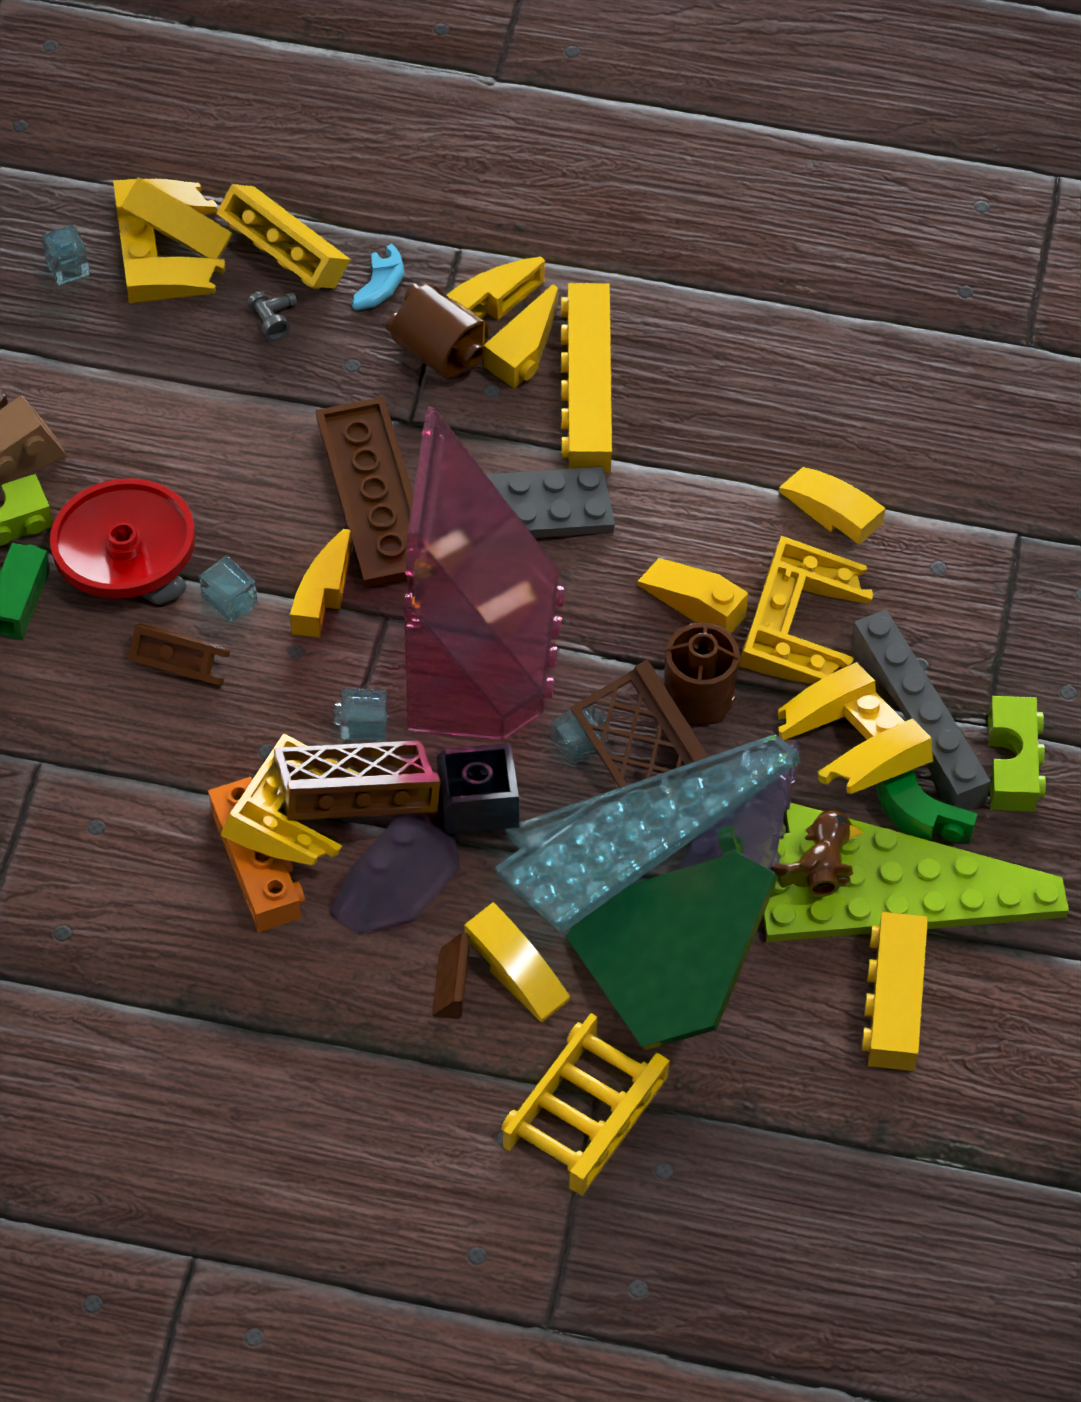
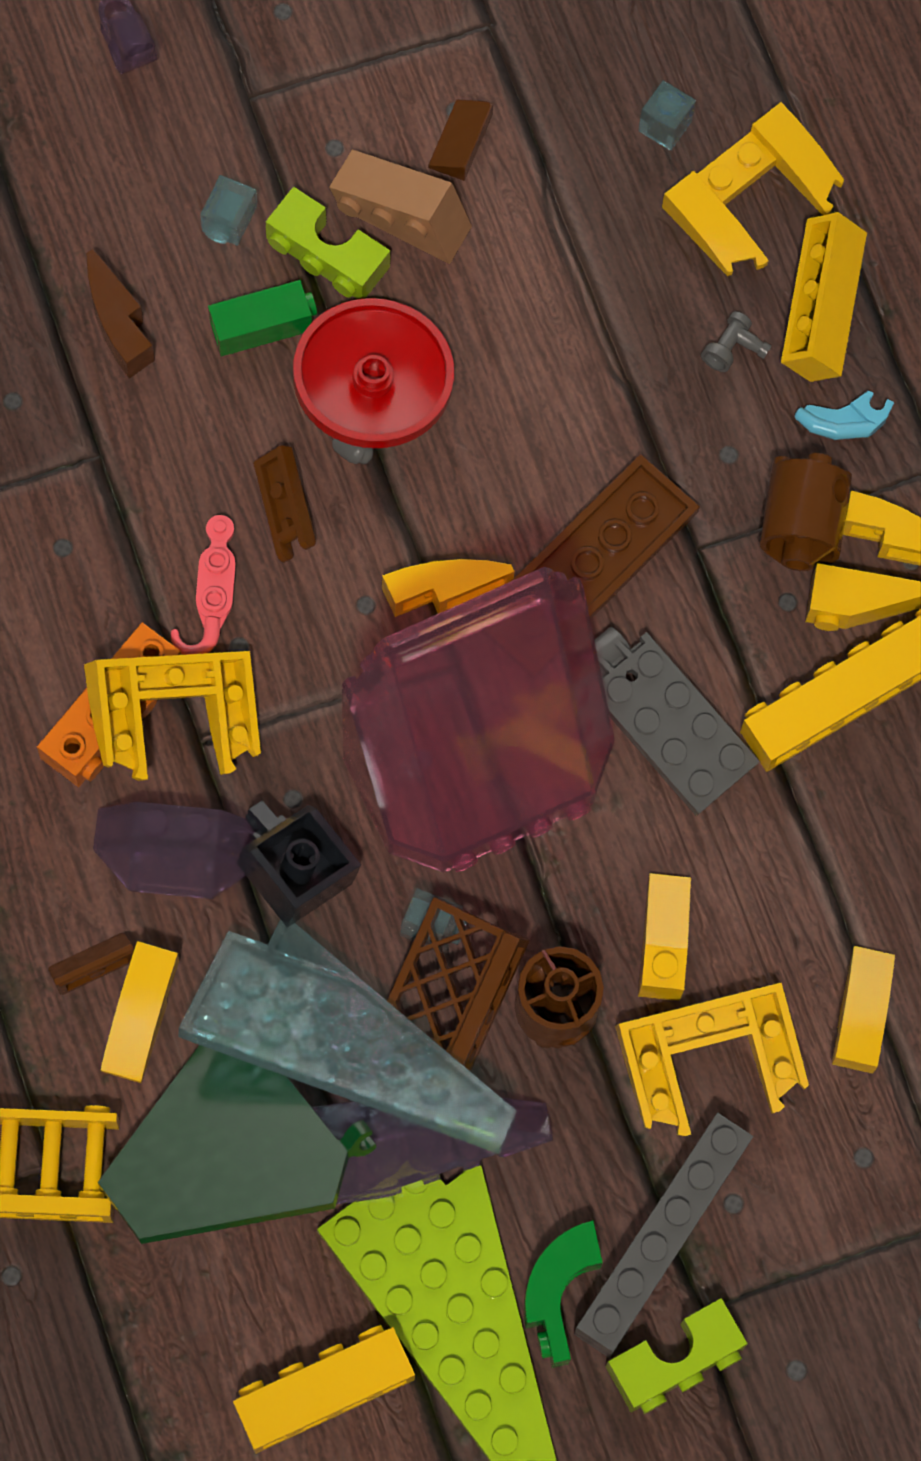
camera: 55 degrees right, 15 degrees up
(176, 220) = (773, 188): yellow slope -> none
(205, 735) = (214, 586): none -> coral piece
(228, 588) = (385, 502): clear light blue brick -> none
(346, 794) = (200, 759): reddish brown fence -> none
(362, 714) = (320, 707): clear light blue brick -> none
(822, 863) = (414, 1238): reddish brown animal -> none
(891, 742) = (590, 1237): yellow wedge -> none

